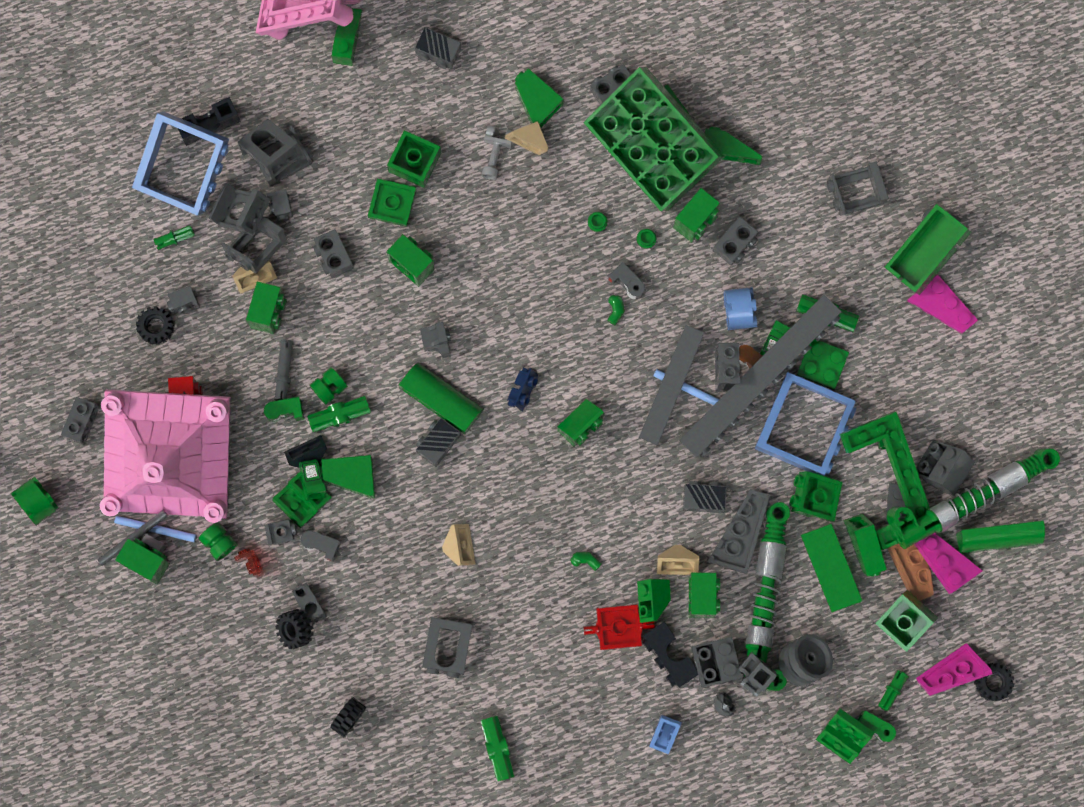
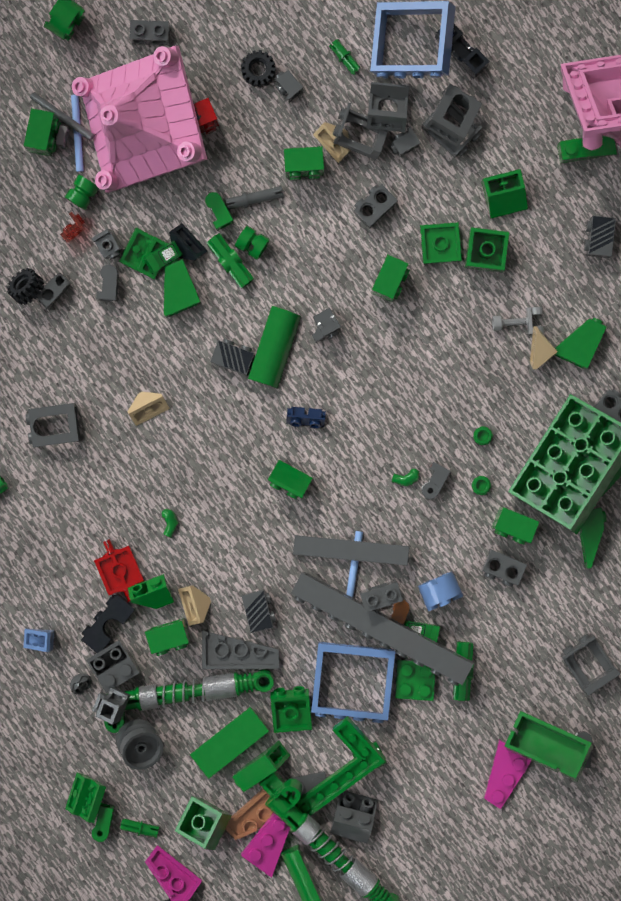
camera: 70 degrees right, 10 degrees up
(364, 124) = (505, 193): none -> green slope

